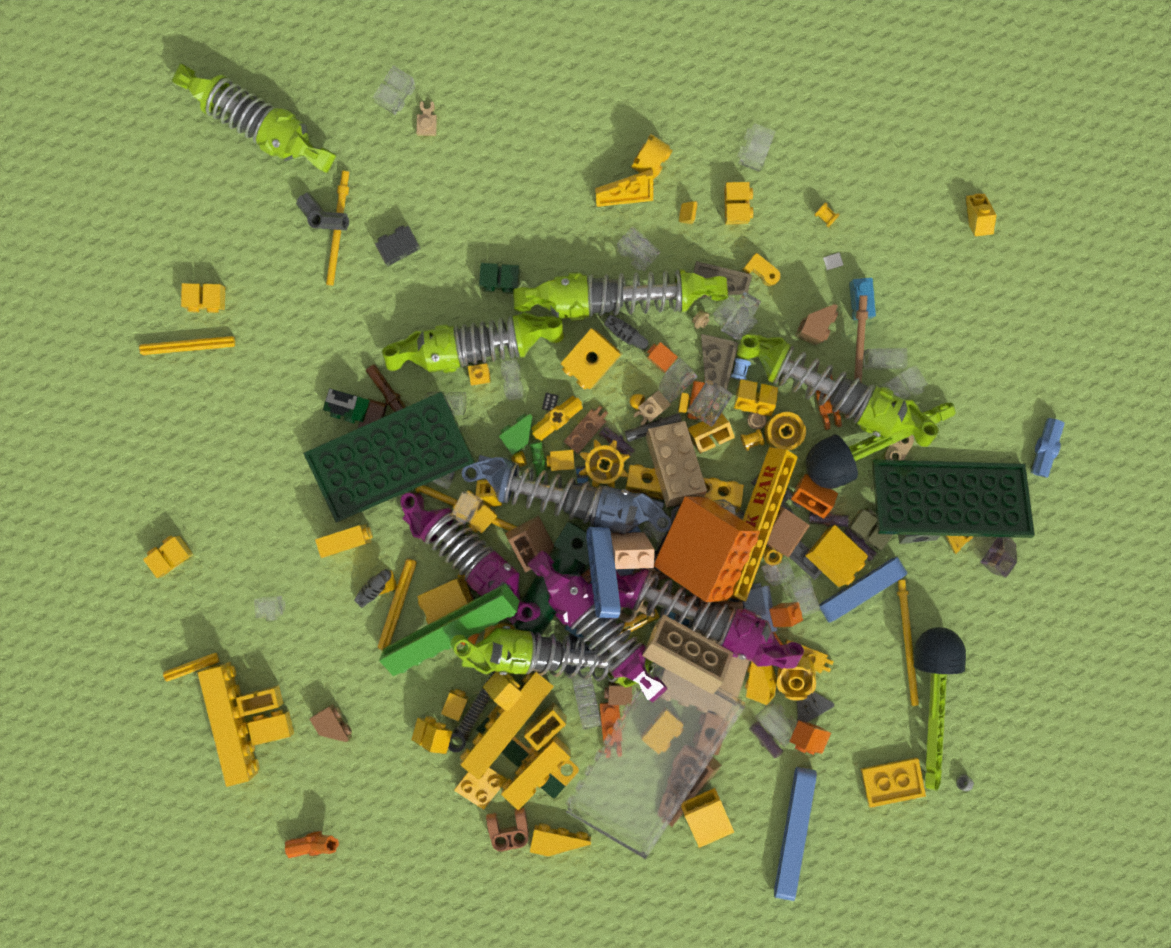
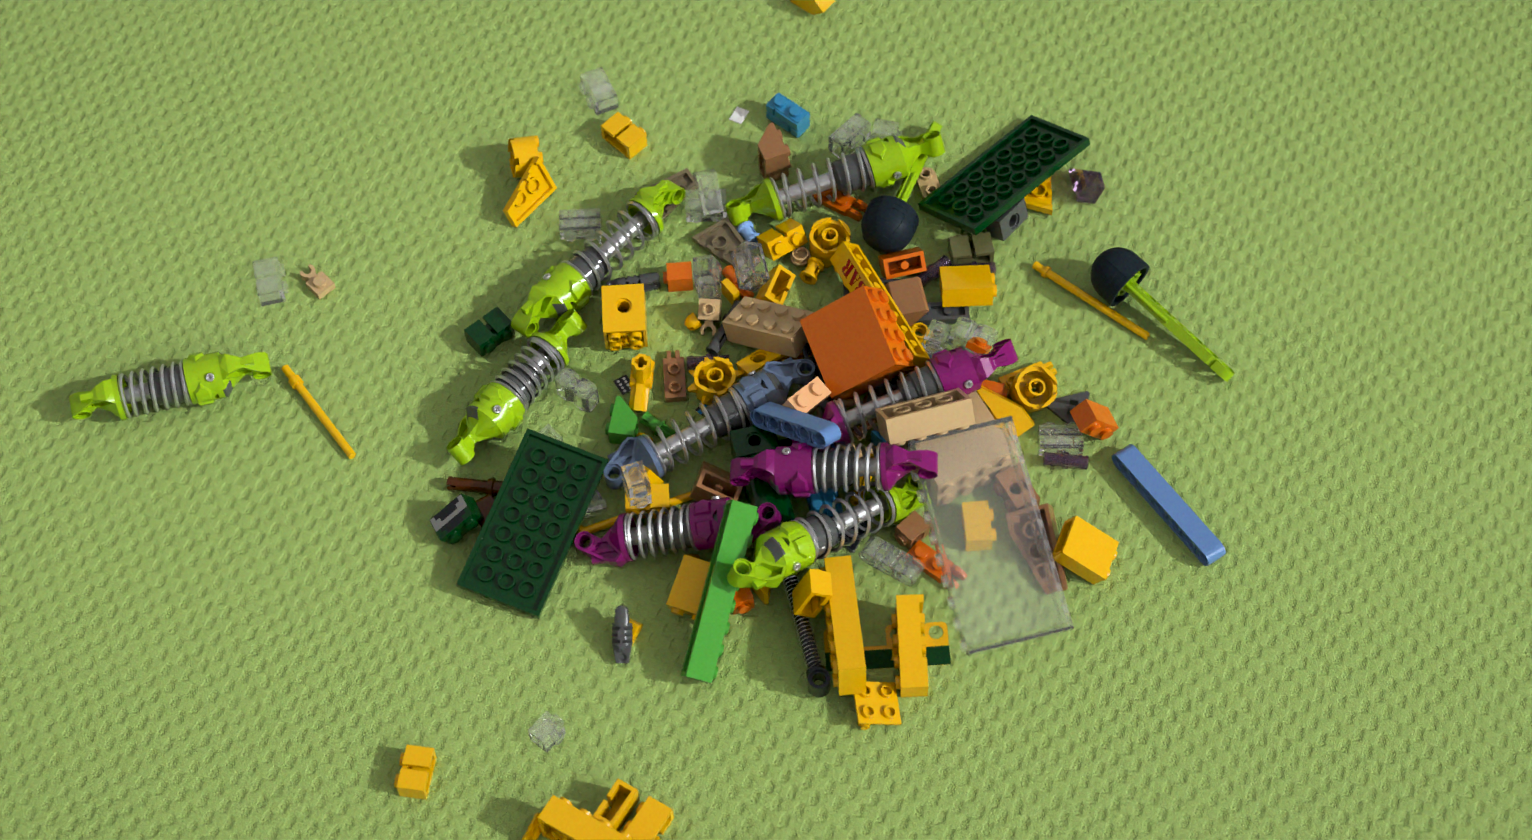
camera: 45 degrees left, 30 degrees down
(187, 345) = (271, 600): yellow axle -> none
(207, 297) = (249, 556): yellow piece -> none
(313, 212) = (286, 412): dark grey piece -> none
(330, 724) = (698, 774): medium nougat slope -> none
(344, 540) = (559, 617): yellow brick -> none
(397, 603) = (656, 633): yellow axle -> none
(398, 245) = (381, 379): dark grey brick -> none
(432, 735) = (792, 694): yellow piece -> none
(455, 704) = (787, 662): yellow brick -> none
(479, 374) = (545, 407): yellow brick -> none
(508, 833) = (927, 726): nougat piece -> none
(545, 726) = (878, 597): yellow brick -> none
(553, 841) = (982, 692): yellow slope -> none
(561, 460) = (676, 408): yellow brick -> none
(688, 212) = (593, 171): yellow slope -> none
(701, 319) = (681, 228): tan plate -> none
(763, 269) = (693, 159): yellow leg -> none
(827, 214) = (700, 88): yellow bush -> none
(862, 316) = (799, 117): medium nougat bar -> none
(862, 589) = (1013, 294): medium blue beam -> none
(893, 782) = (1196, 400): yellow plate -> none
(960, 781) = (1249, 352): light grey hinge -> none
(1047, 447) = (1034, 92): medium blue piece -> none

